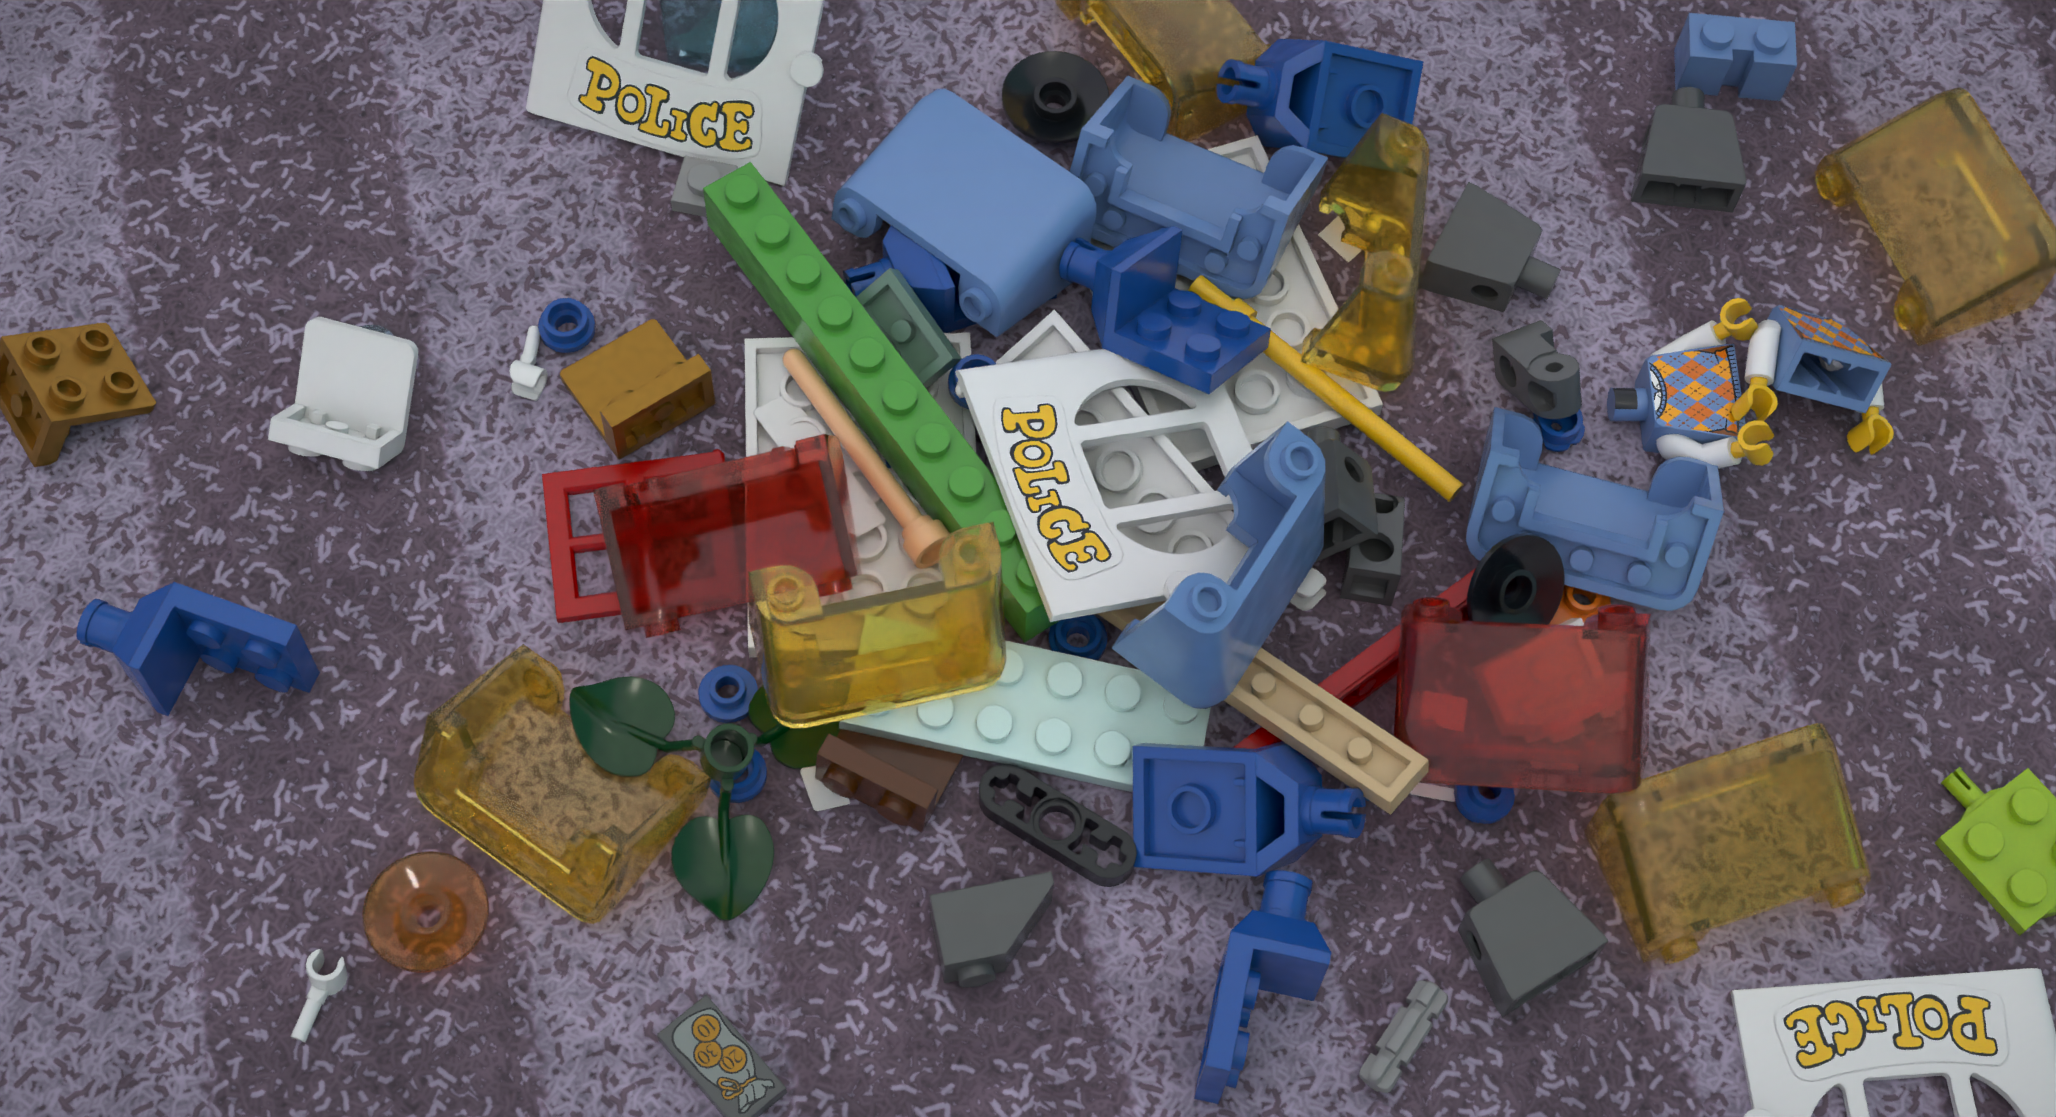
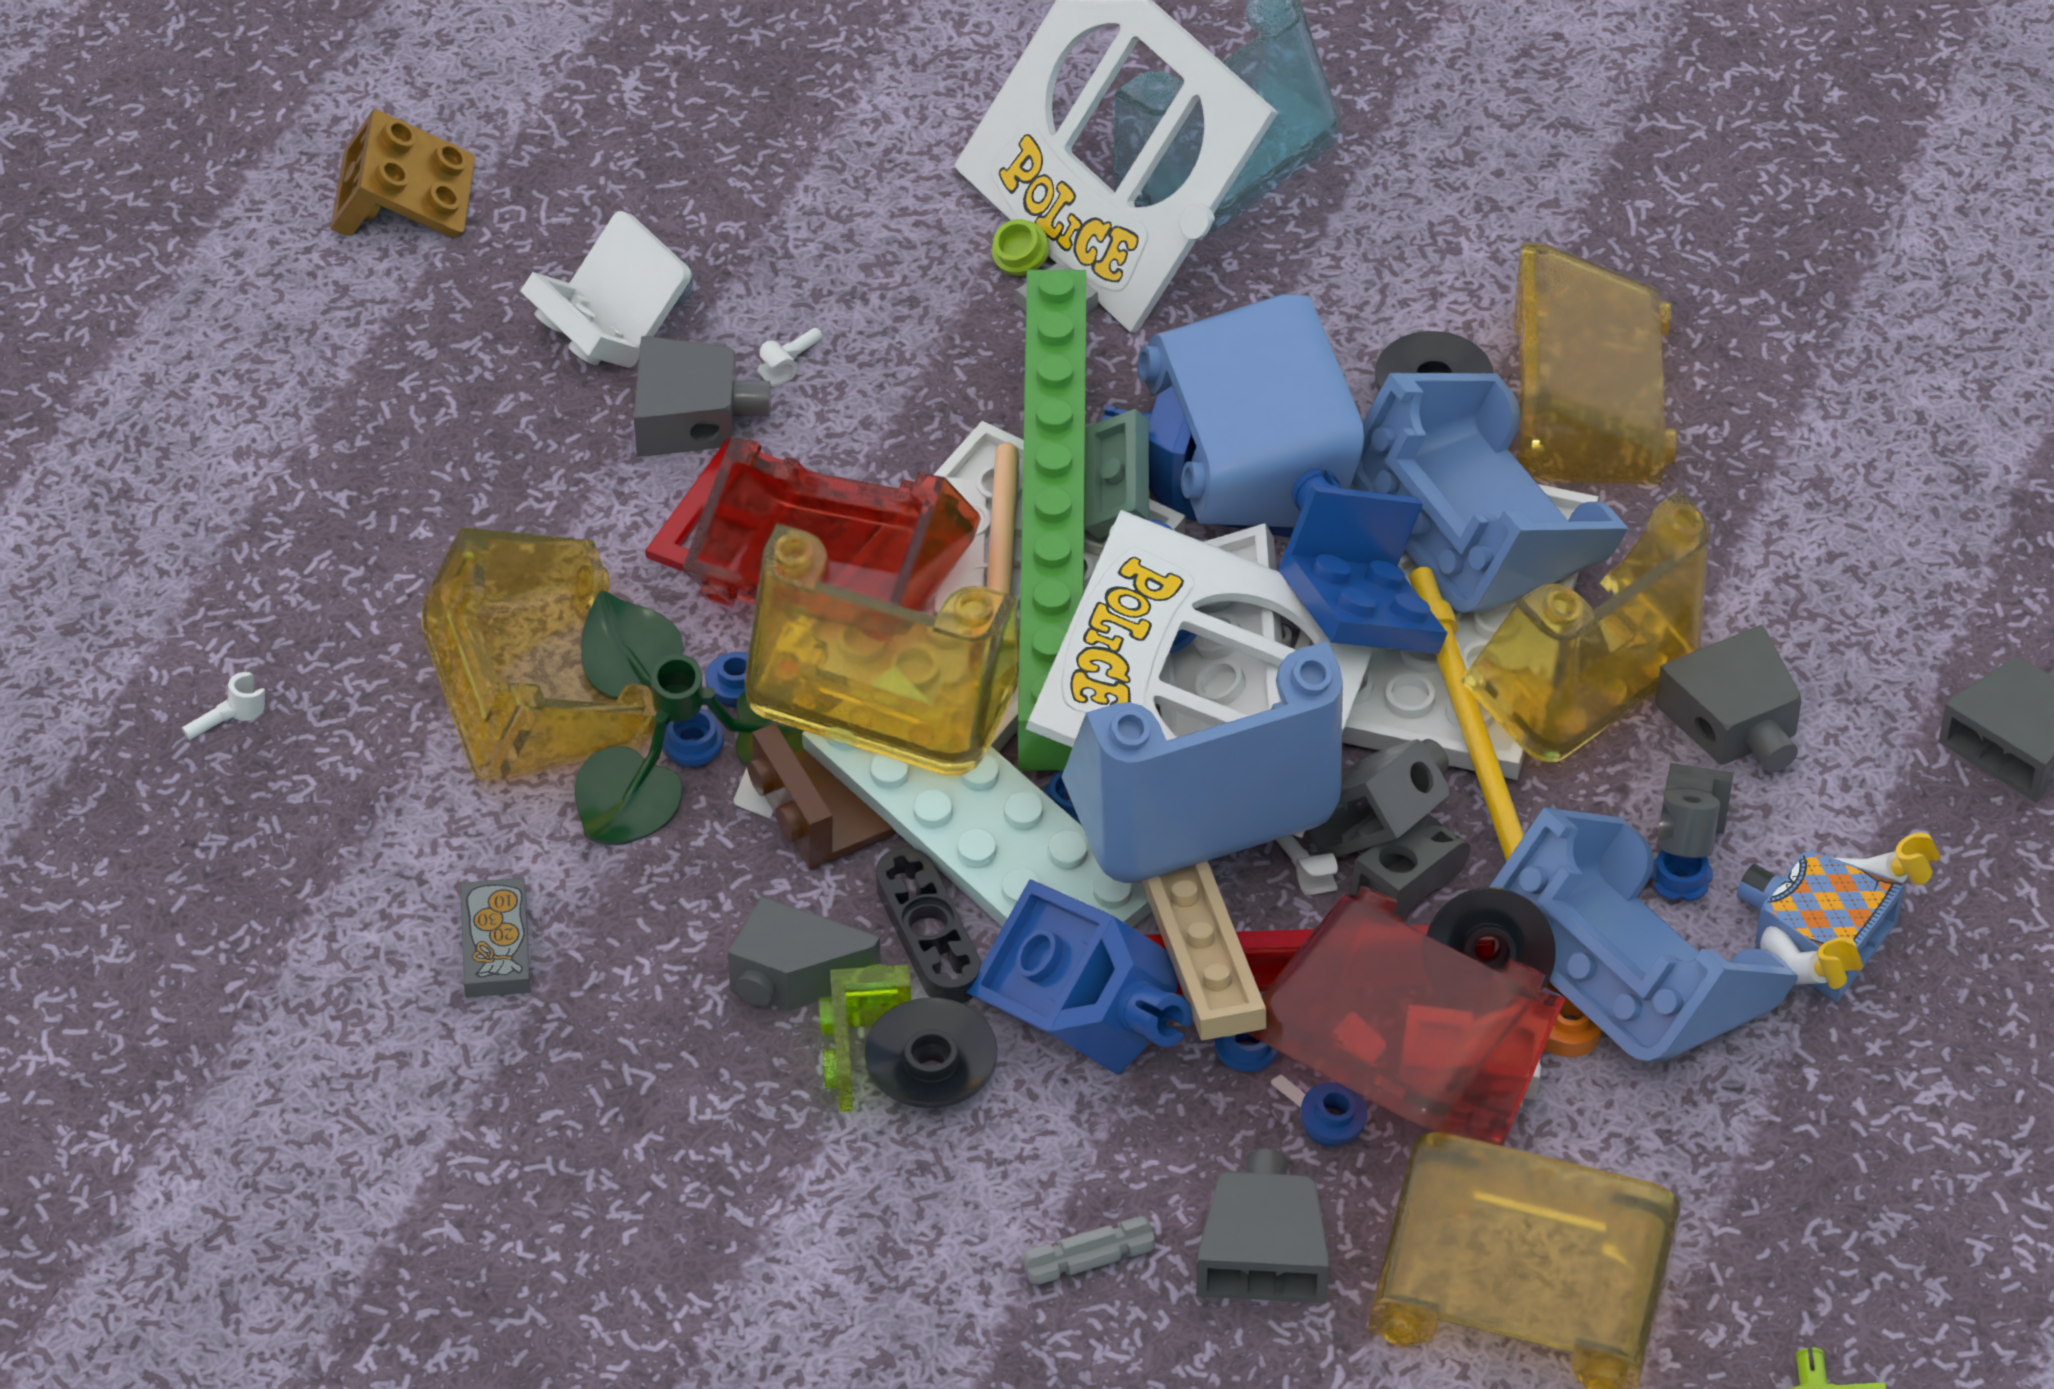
camera: 40 degrees right, 15 degrees down
(181, 624) = (334, 390): blue plate -> none
(409, 889) = (349, 675): clear orange dish -> none
(486, 453) = (691, 396): none -> dark grey torso
(561, 312) = (843, 339): blue plate -> none
(639, 387) = (860, 417): pearl gold bracket -> none
(643, 159) = (1019, 247): none -> lime plate
(1070, 920) = (856, 999): none -> clear neon green bracket
(1162, 915) = (931, 1032): none -> black dish
(1264, 952) = (969, 1096): blue plate -> none
(1320, 93) = (1657, 458): blue plate -> none
(1818, 362) = (1976, 940): torso -> none

